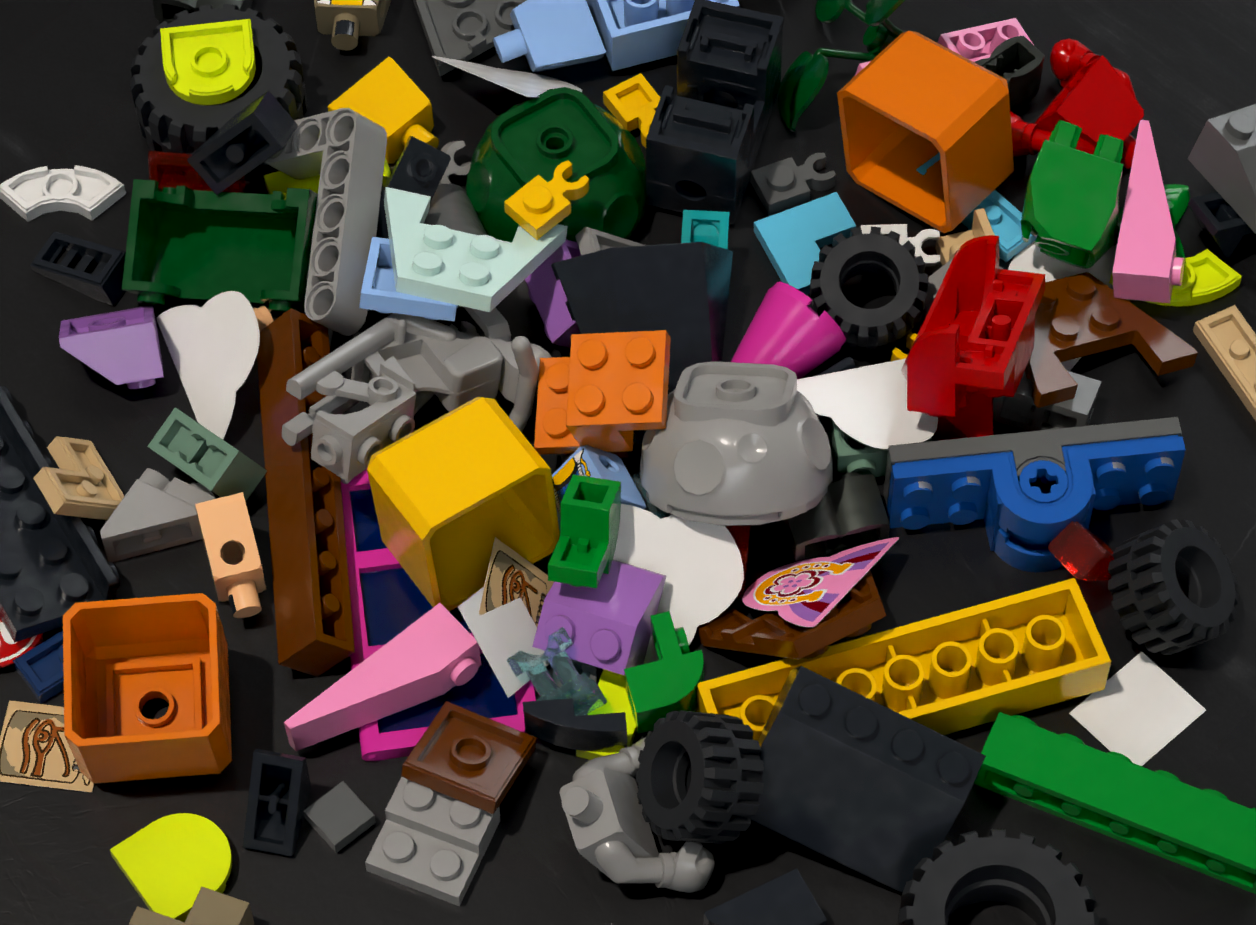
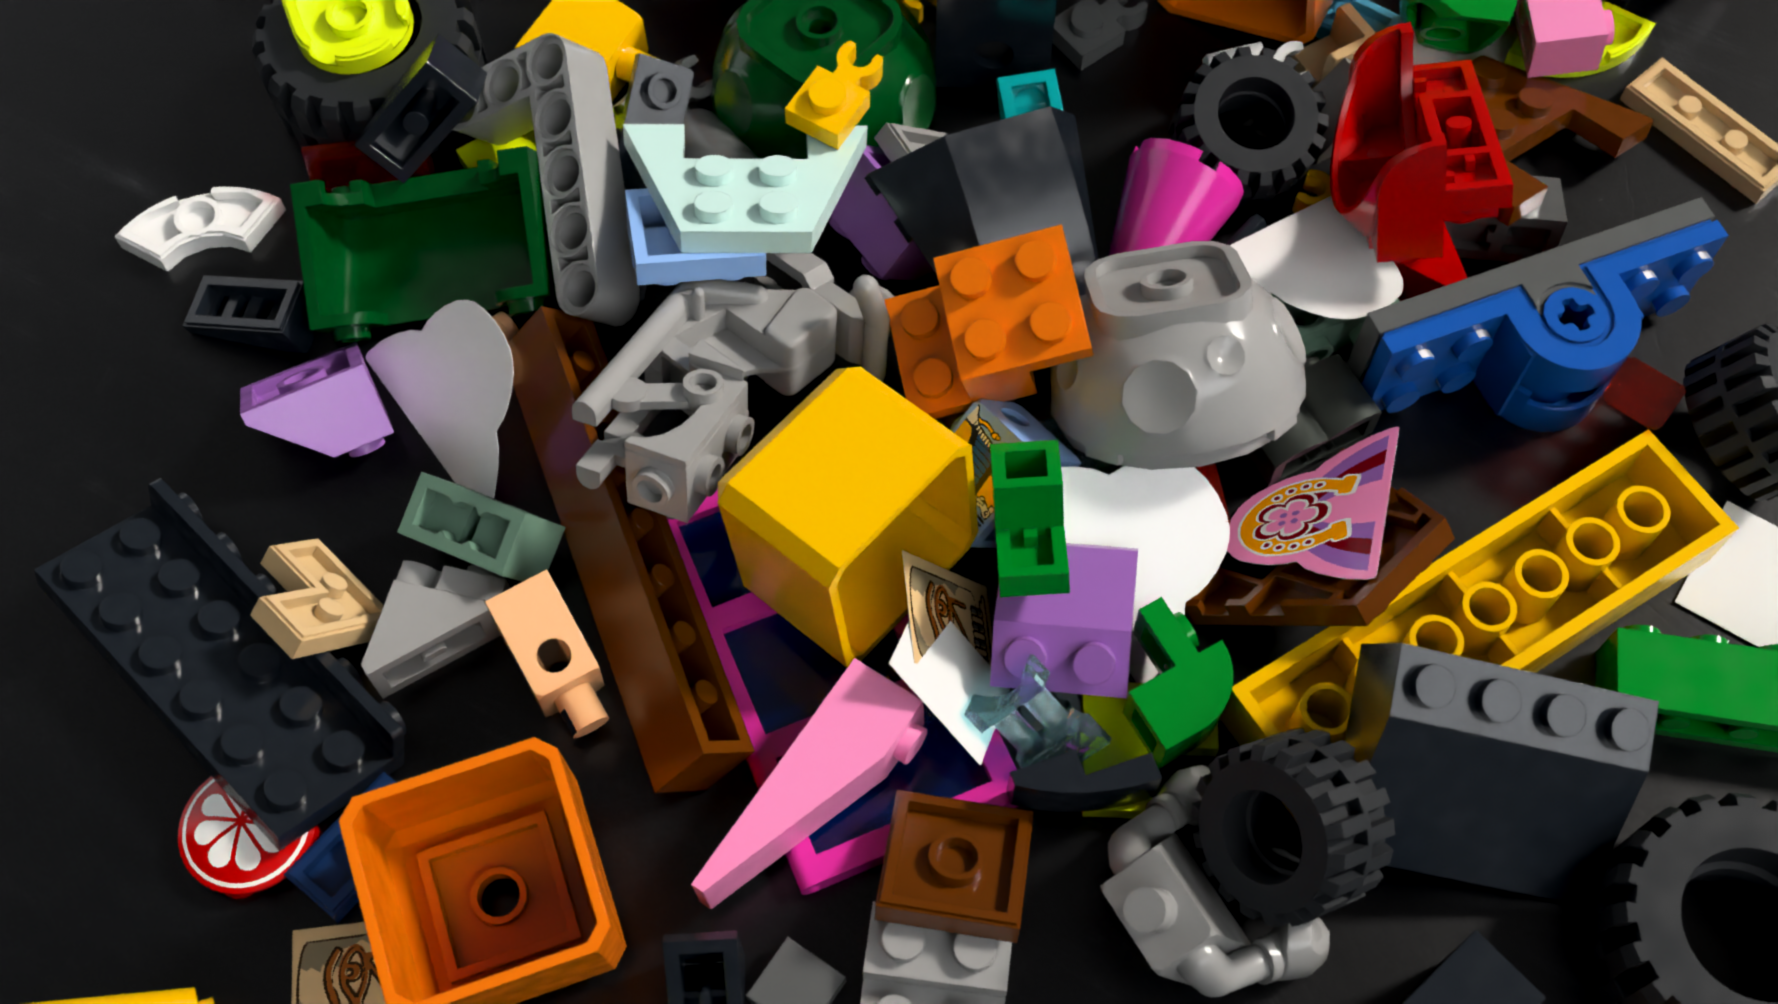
camera: 15 degrees left, 5 degrees up
(796, 235) = (1128, 84): medium azure tile -> none

